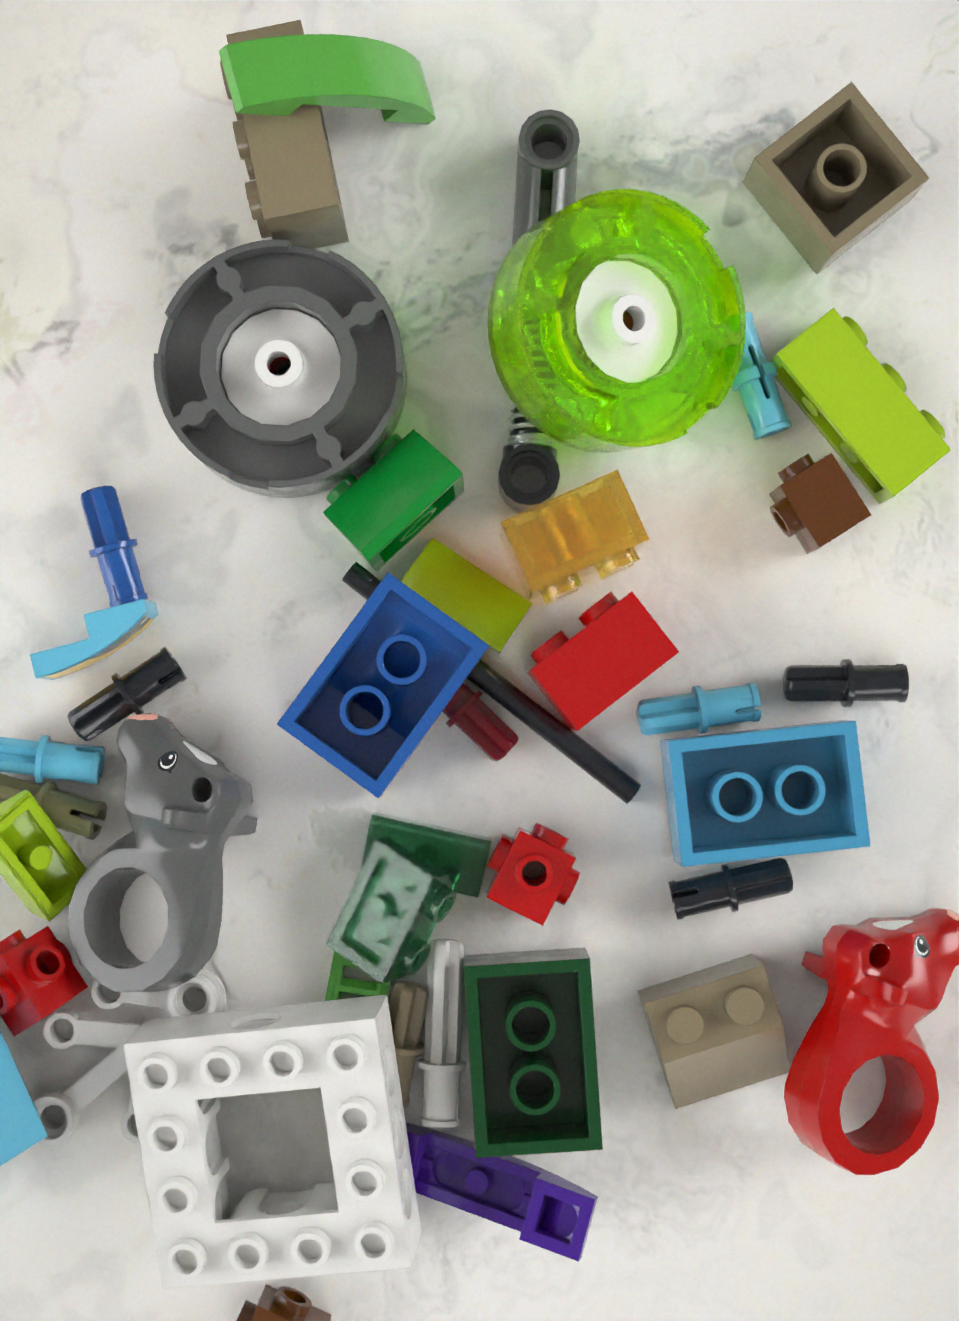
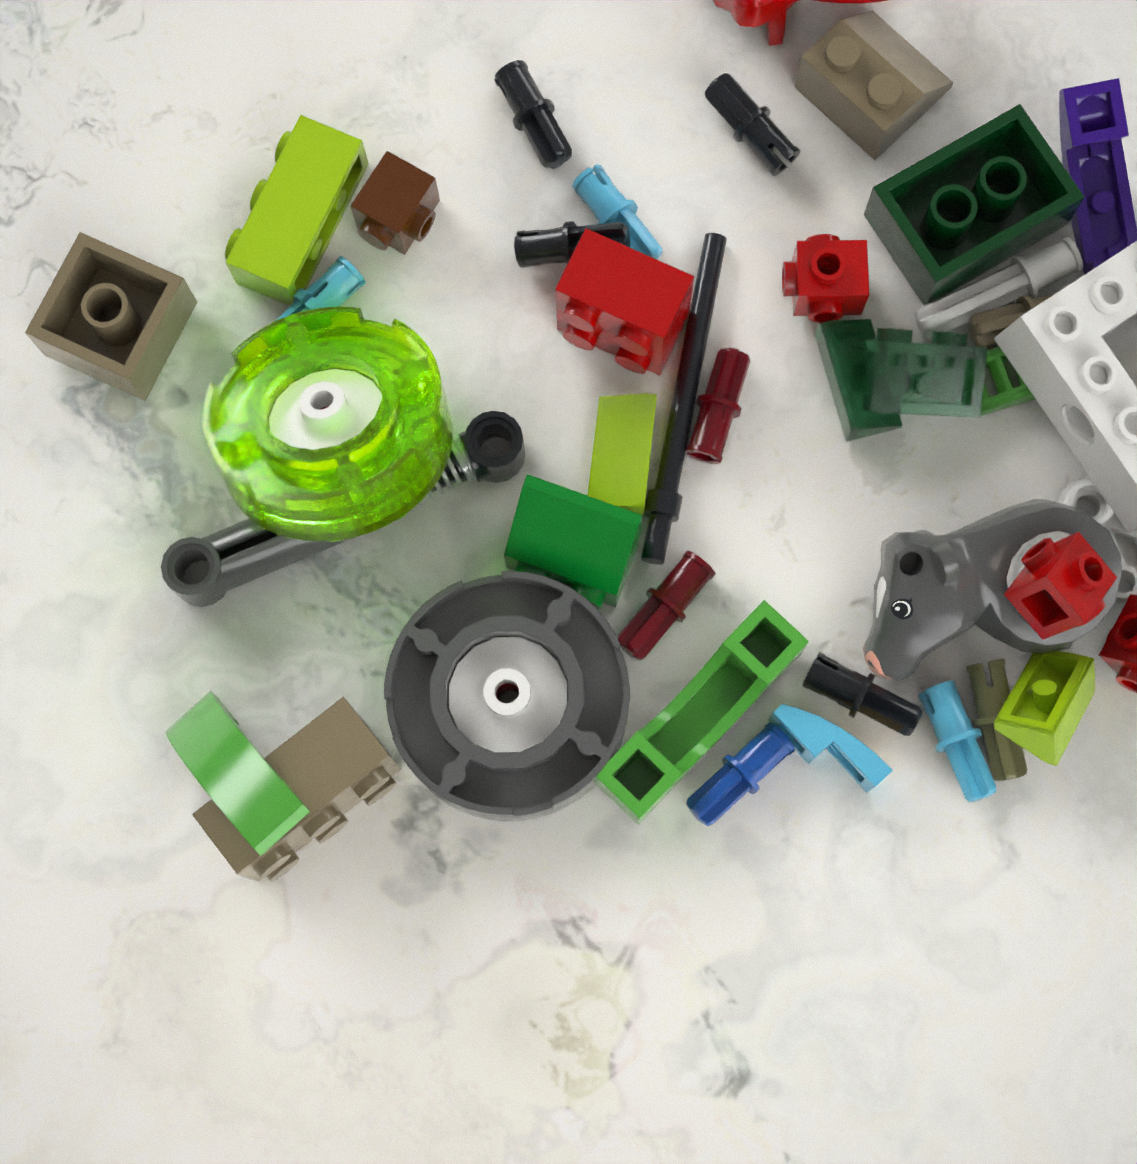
camera: 115 degrees left, 10 degrees down
(109, 916) = (1060, 585): none -> red brick
(189, 557) = (701, 713): none -> bright green arch
(301, 560) = (665, 605): none -> dark red axle
(383, 685) = (740, 470): blue slope -> none
(574, 536) = (530, 373): clear yellow brick -> none
(695, 648) = (558, 244): none -> black axle
(765, 793) = (660, 128): dark azure brick -> none

